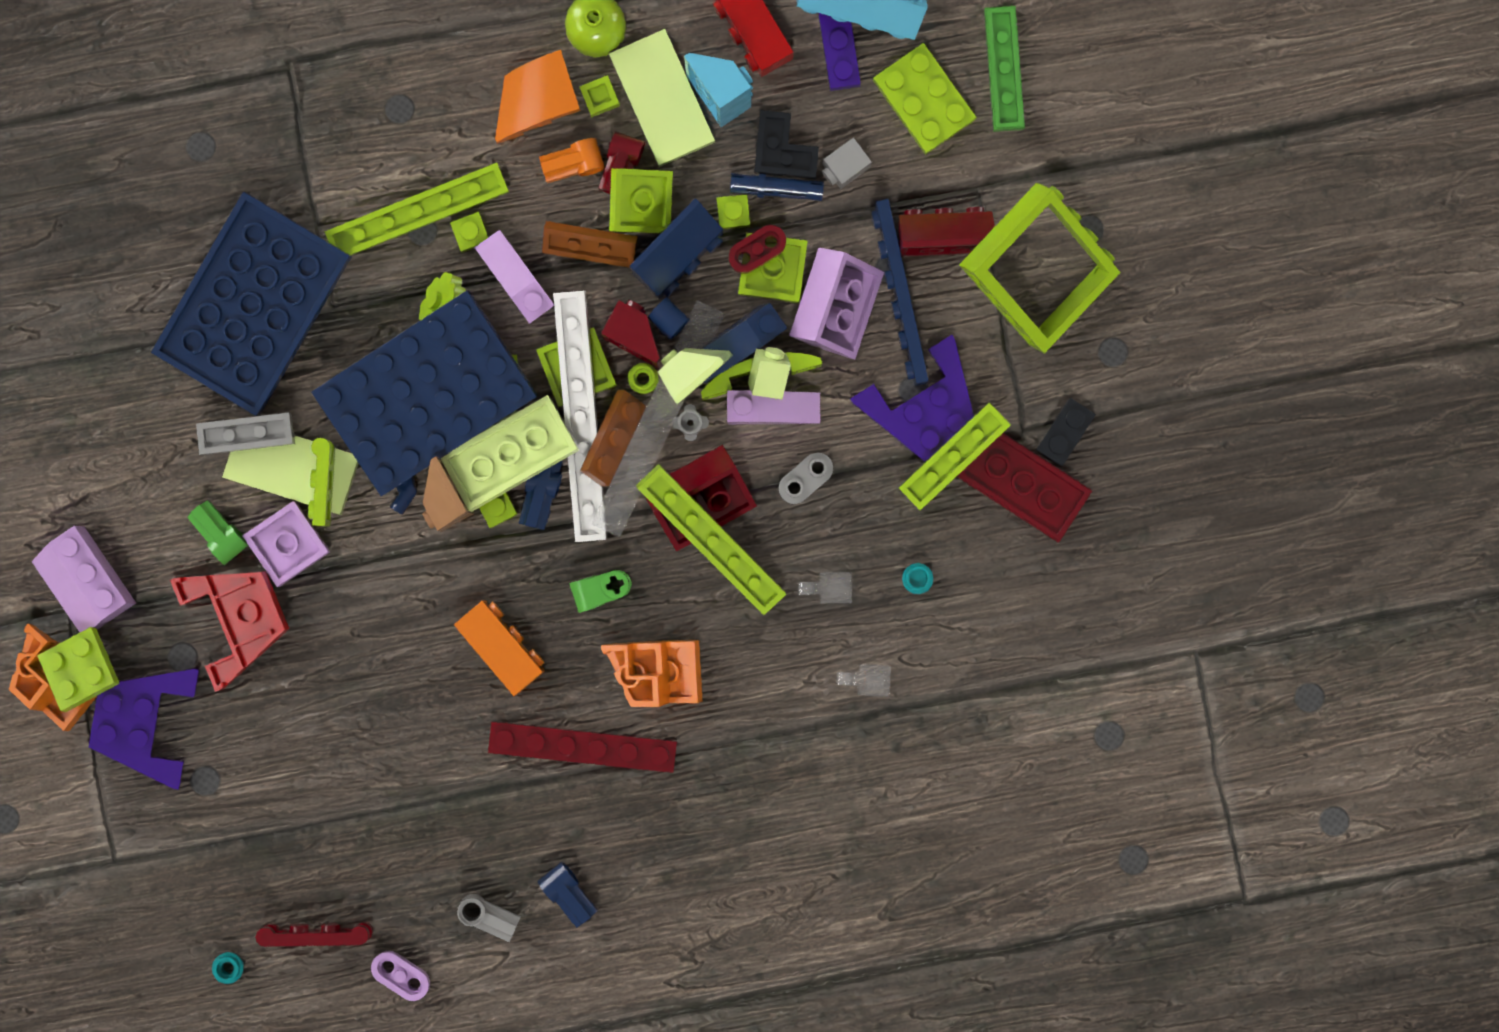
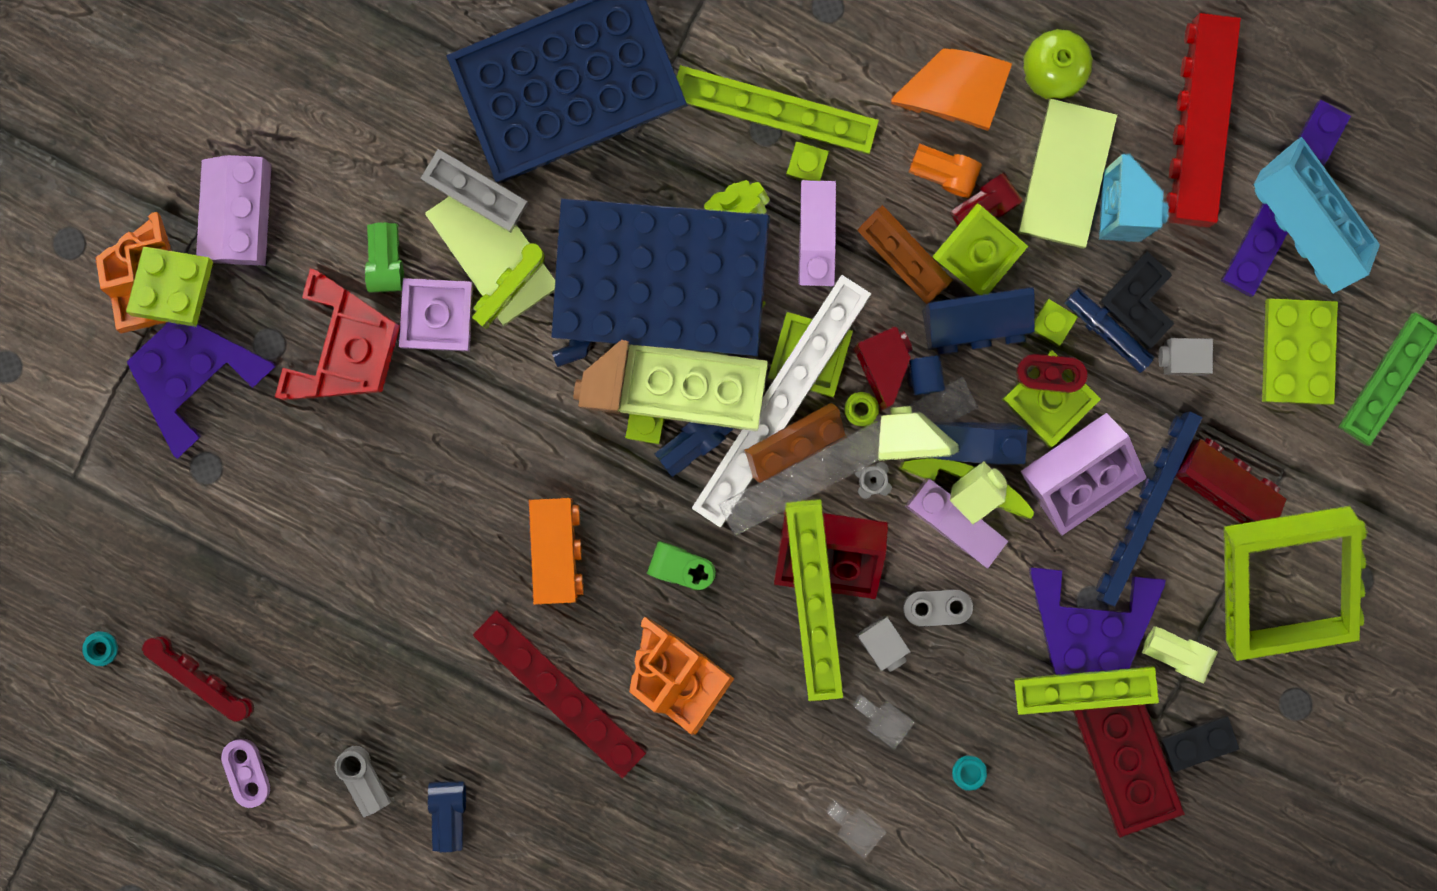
camera: 35 degrees right, 0 degrees up
(599, 96) = (1013, 130): lime plate -> none
(787, 533) = (884, 644): none -> light grey brick
(1009, 377) = (1186, 656): none -> yellowish green piece

